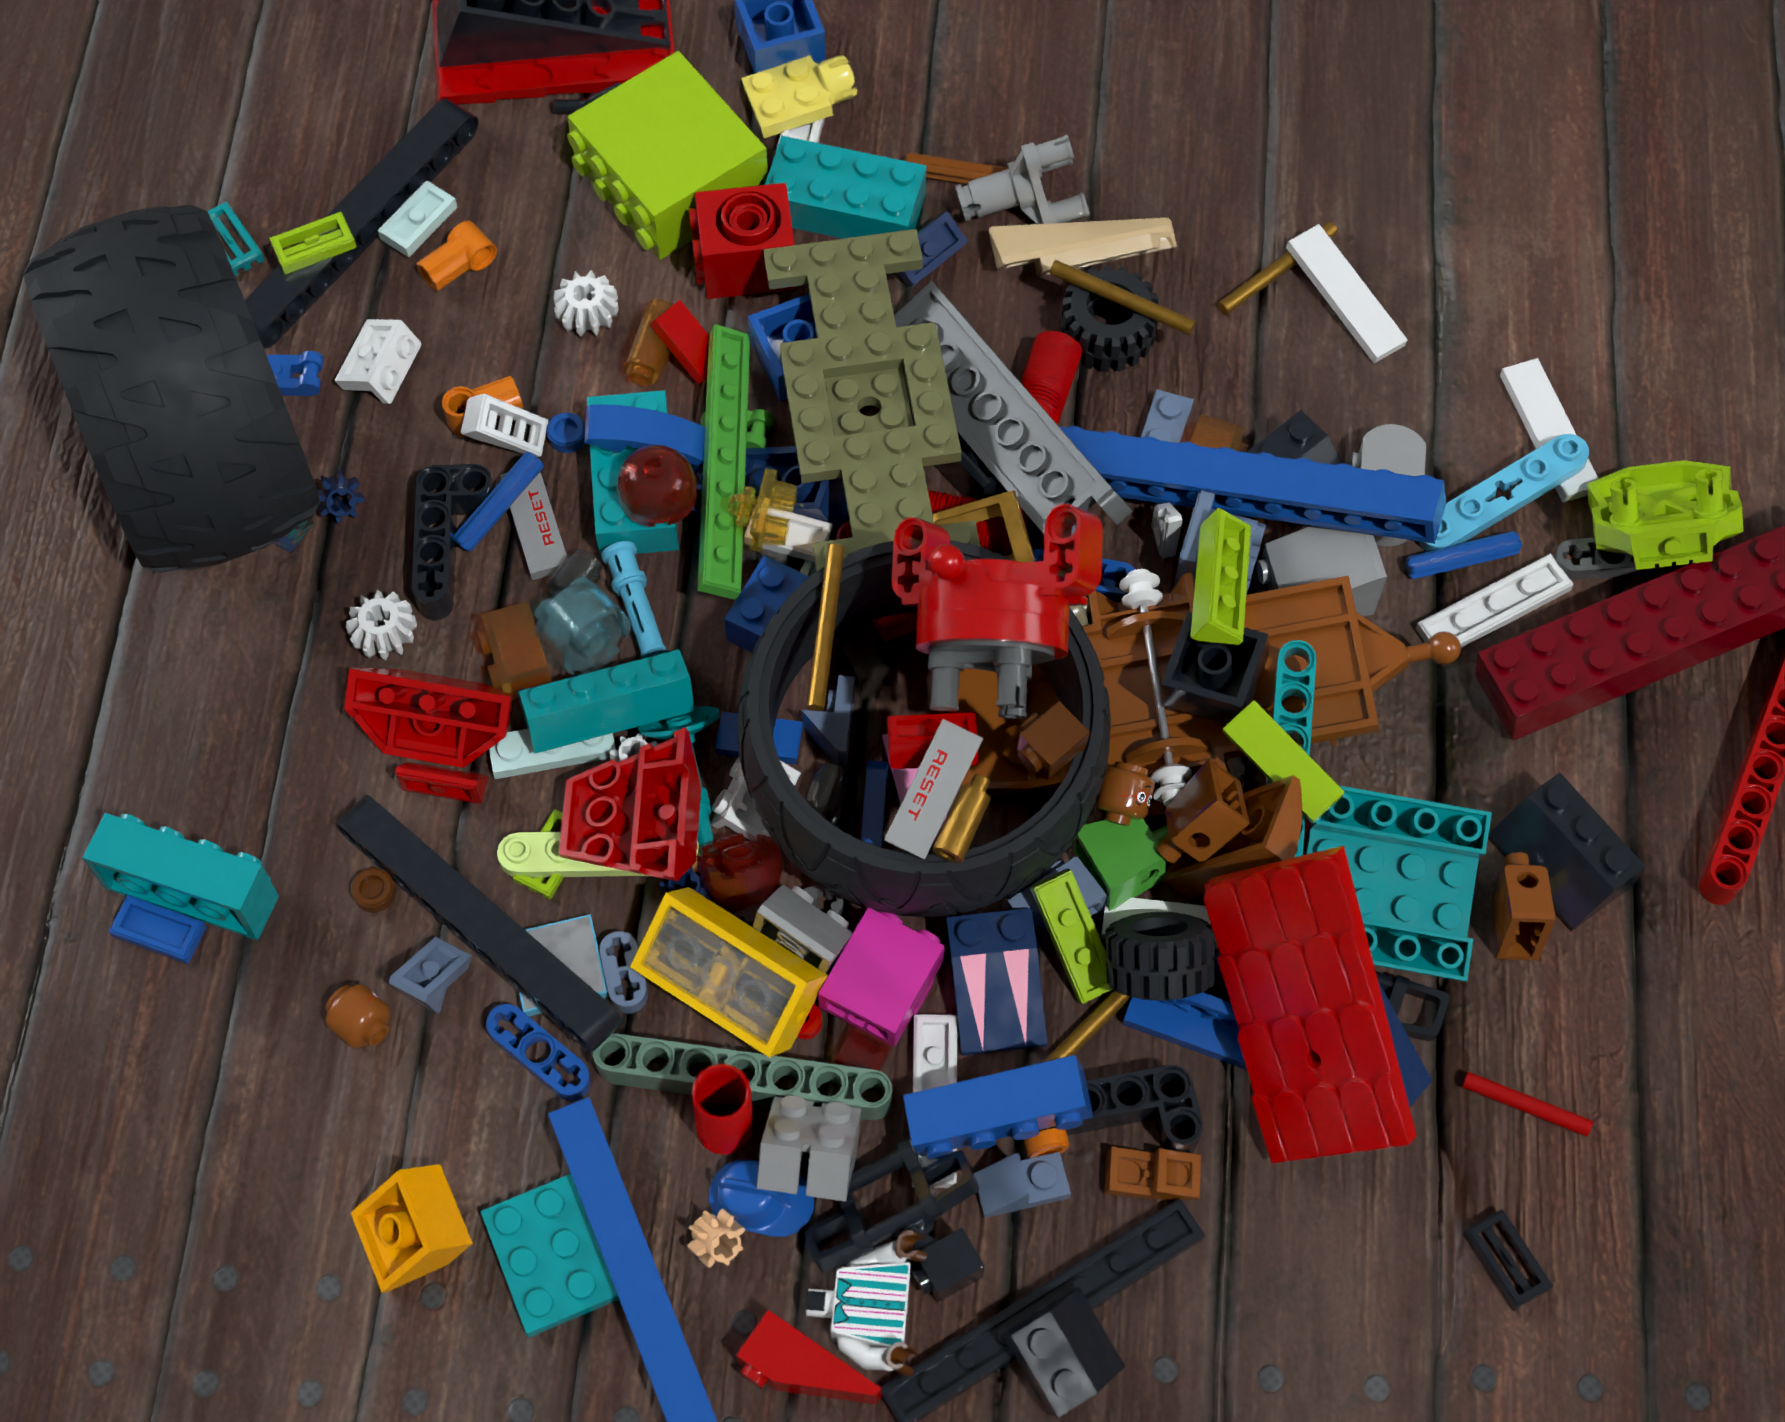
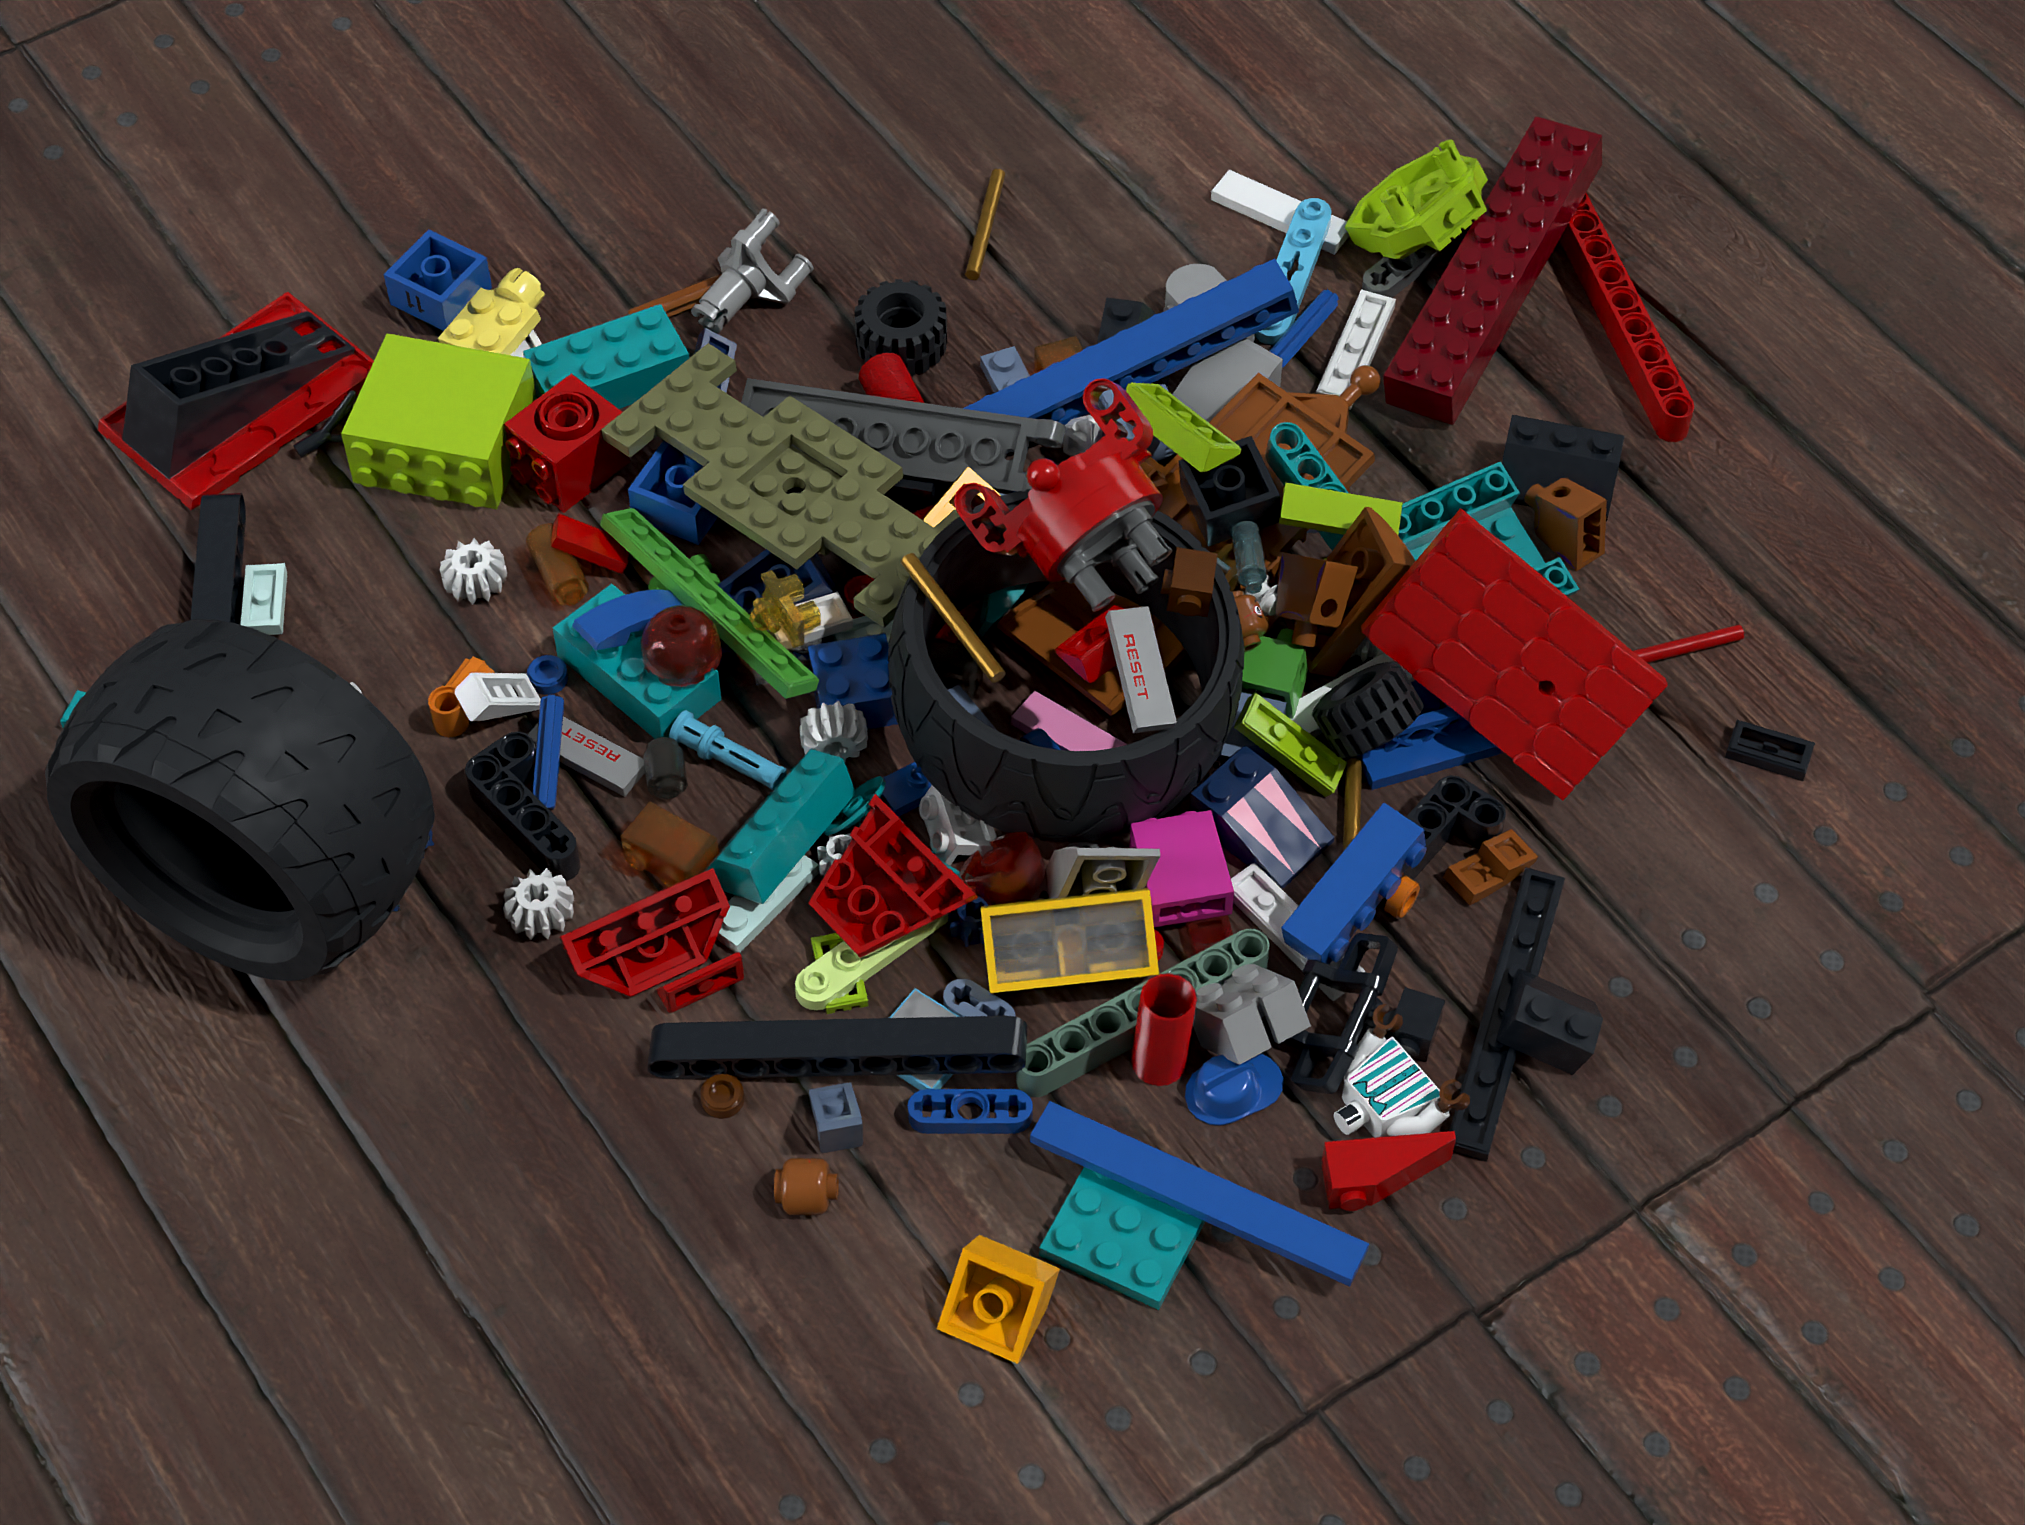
camera: 40 degrees left, 10 degrees down
(157, 929) = (571, 1249): blue tile -> none
(182, 874) = (565, 1184): teal brick -> none
(464, 250) = (328, 599): orange piece -> none
(581, 627) = (710, 790): clear light blue brick -> none
(716, 1238) = (1234, 1130): light nougat gear -> none
(721, 645) = (834, 730): none -> white gear
(963, 820) = (1180, 680): pearl gold cylinder -> none
(1021, 1183) = (1415, 934): sand blue slope -> none
(1078, 242) = (822, 296): tan wedge -> none
(1122, 297) = (906, 299): pearl gold bar -> none
(1180, 741) = (1249, 556): none -> clear light blue cylinder
(1346, 293) = (1054, 208): white tile -> none

